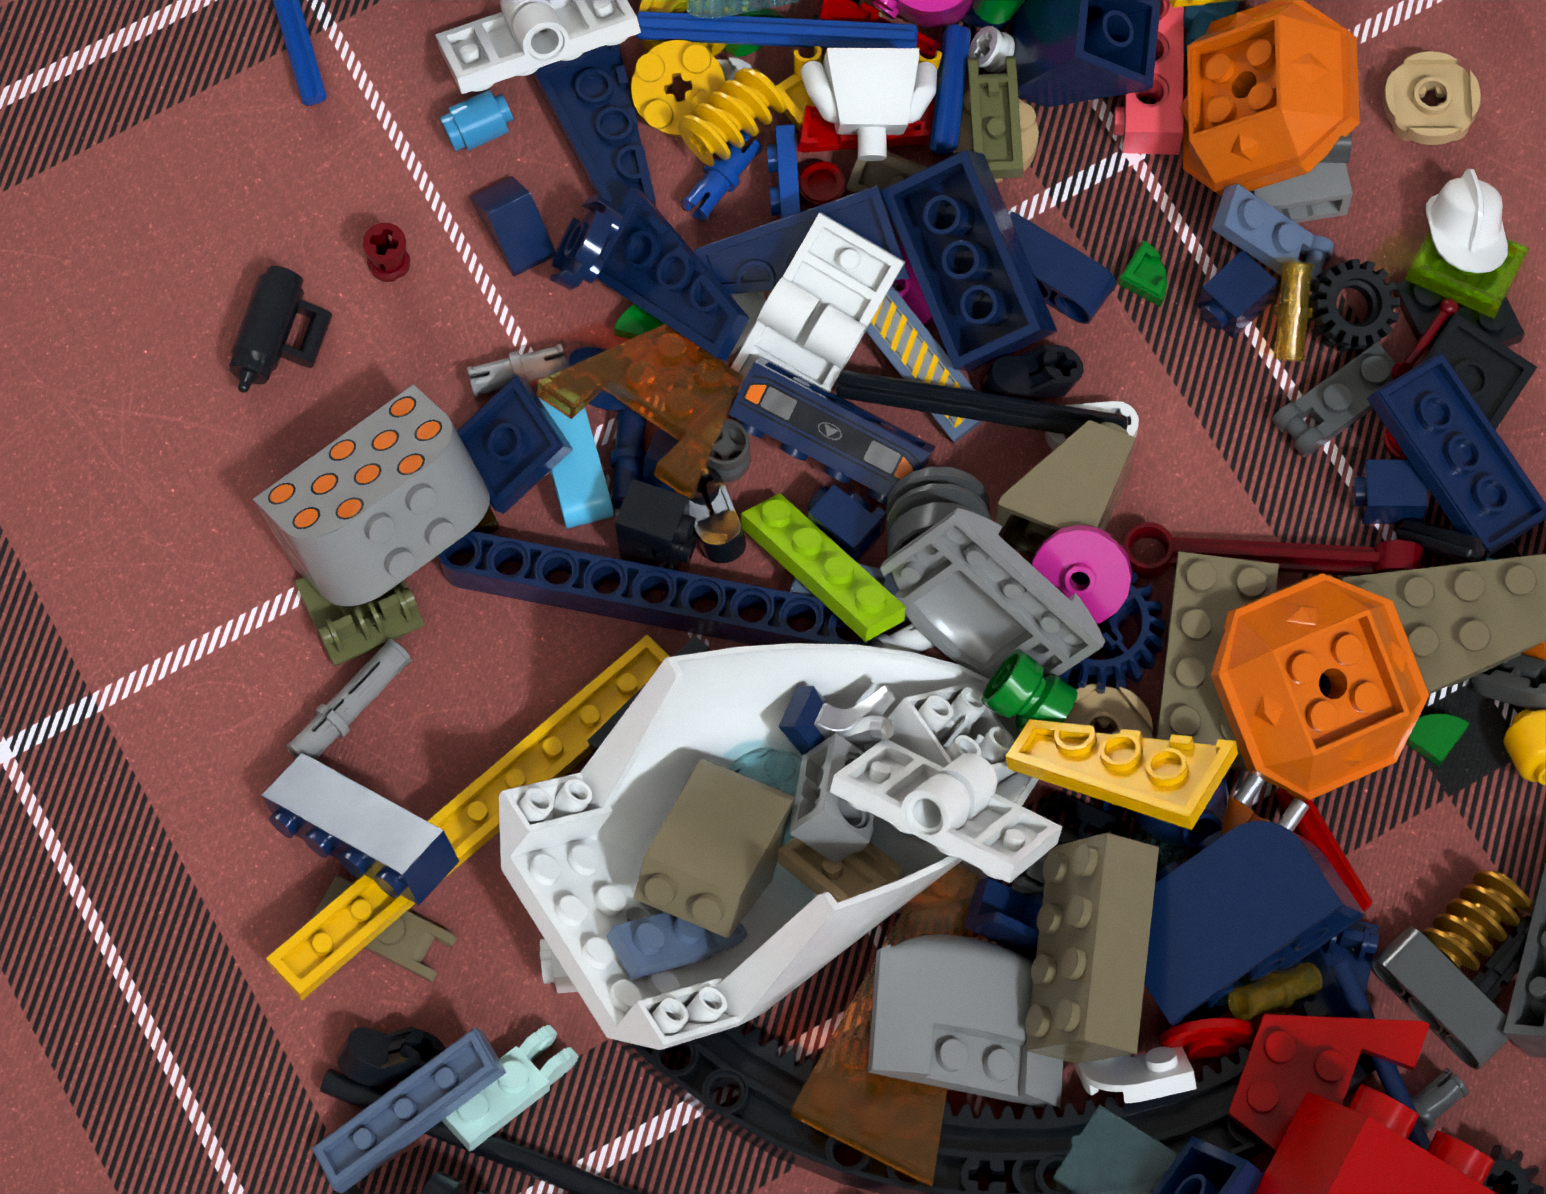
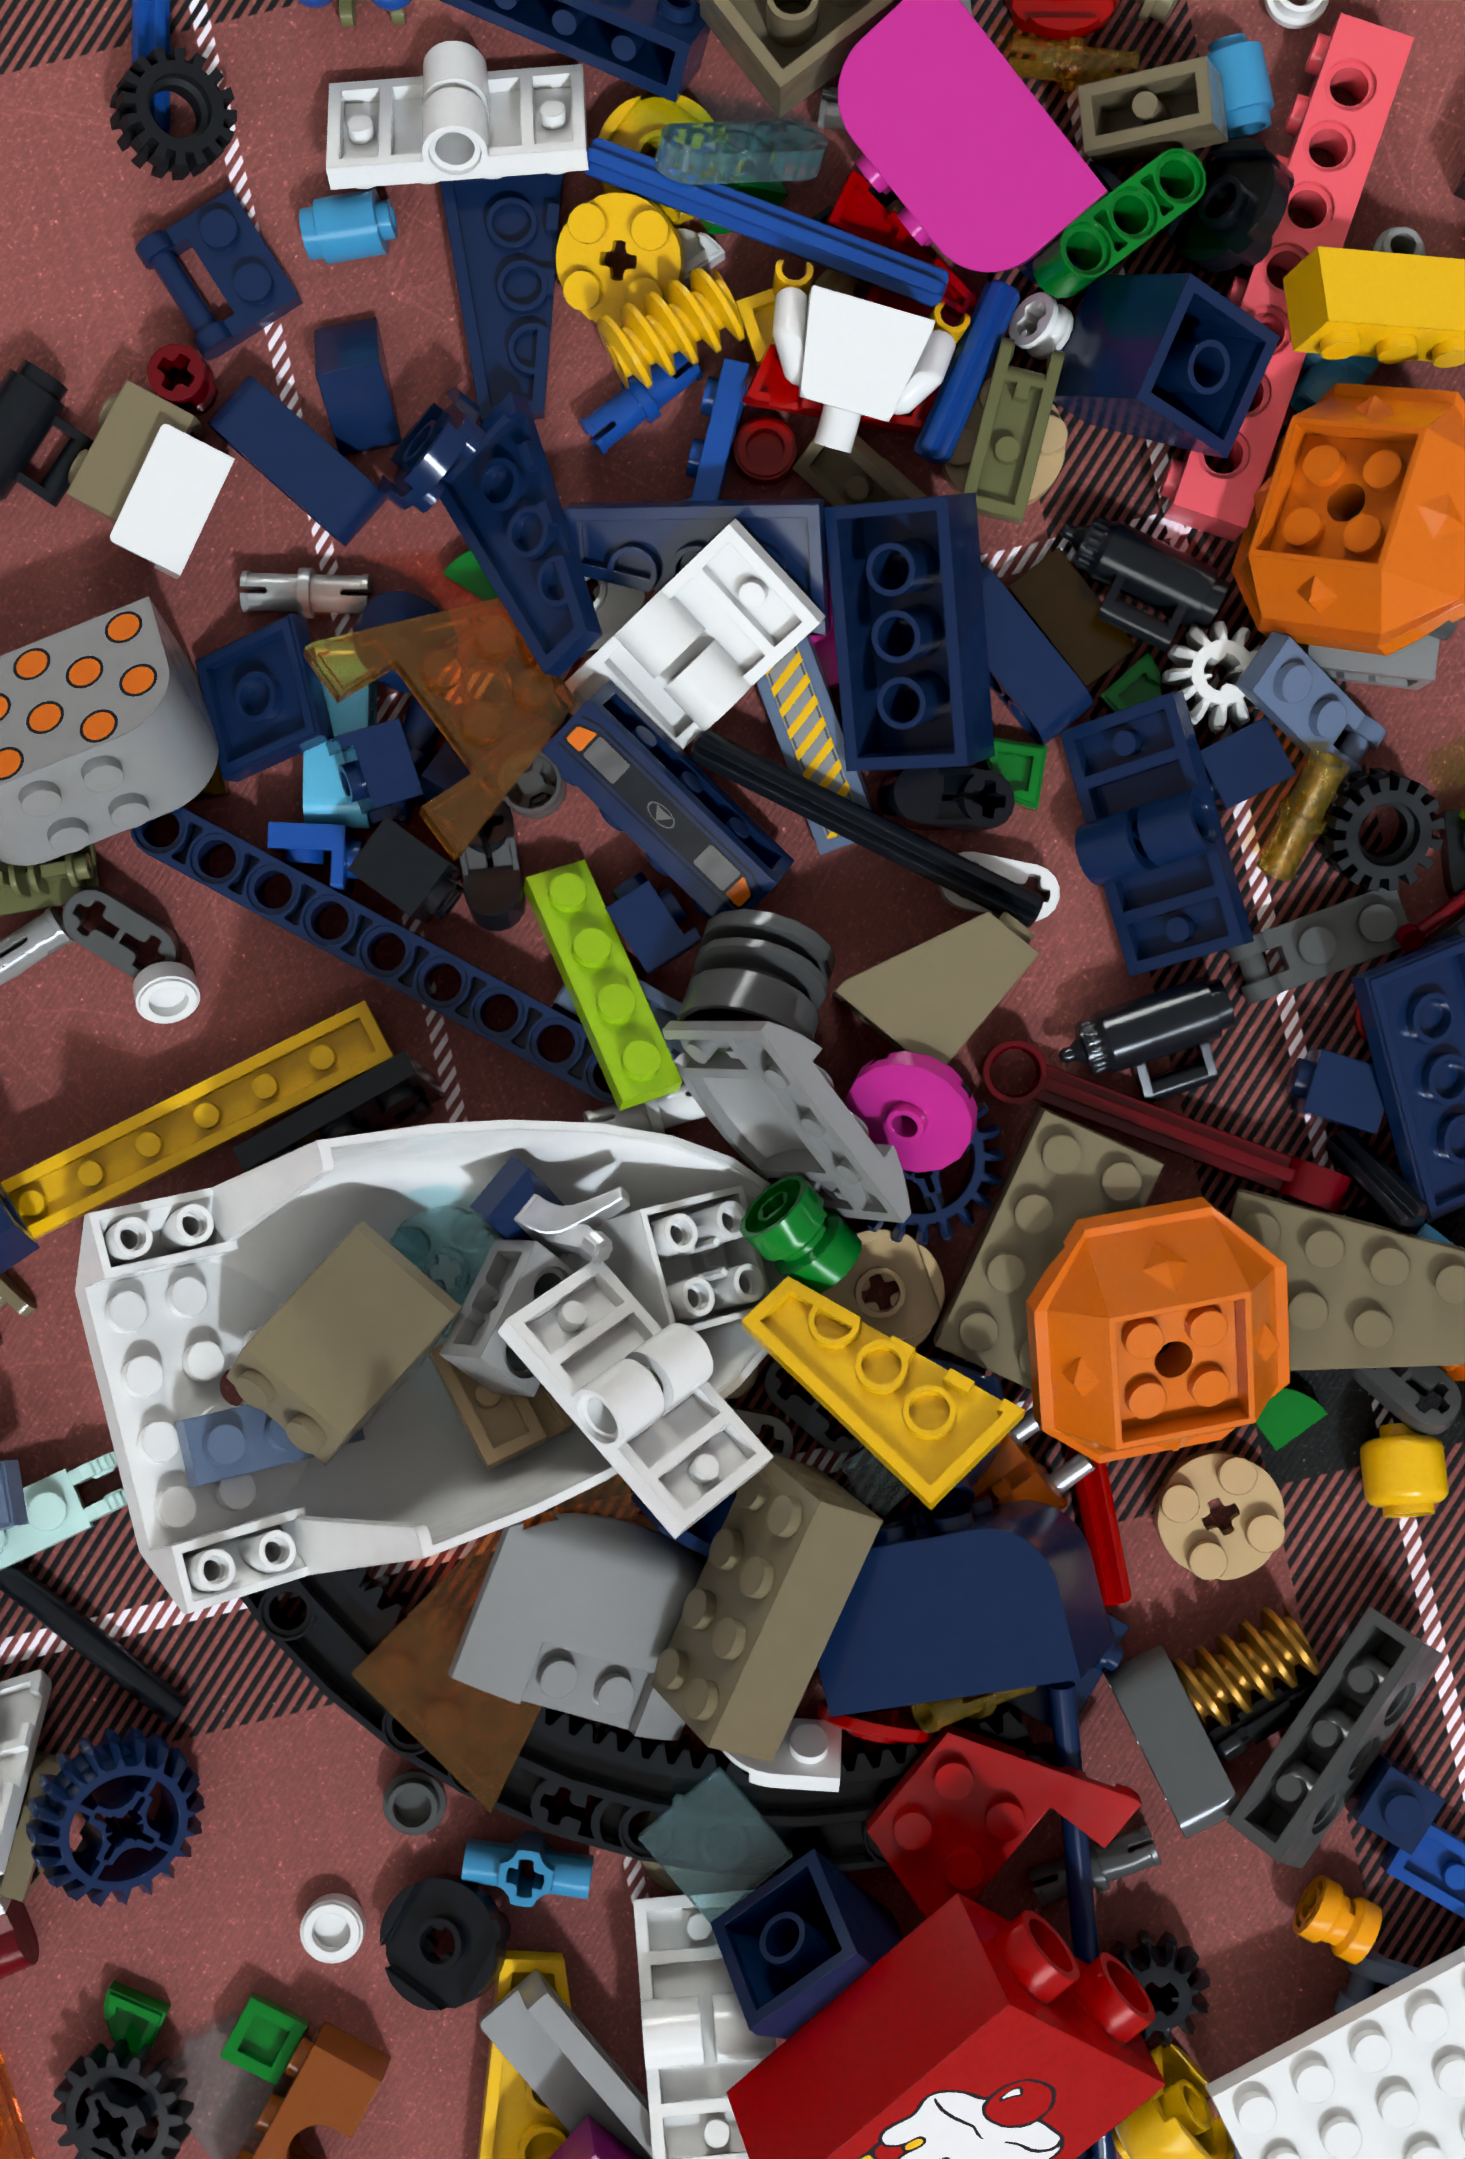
camera: 15 degrees right, 20 degrees up
(344, 63) = (200, 90): none -> black tyre
(367, 314) = (128, 426): none -> dark tan brick
(400, 168) = (238, 265): none -> dark blue plate
(405, 328) = (171, 500): none -> white panel
(452, 630) = (125, 916): none -> dark grey beam
(485, 282) = (297, 460): none -> dark blue beam
(494, 672) = (166, 992): none -> white tile
(580, 533) = (309, 842): none -> blue bracket
(611, 457) = (377, 769): none -> dark blue brick
(1082, 340) = (1022, 767): none -> green tile
(1083, 230) = (1066, 614): none -> dark brown tile
(1123, 189) = (1148, 574): none -> black piece
(1180, 244) = (1204, 655): none -> white gear
(1192, 354) = (1154, 834): none -> dark blue plate
(1239, 488) = (1155, 1028): none -> black piece
(1418, 795) = (1254, 1528): none -> tan plate

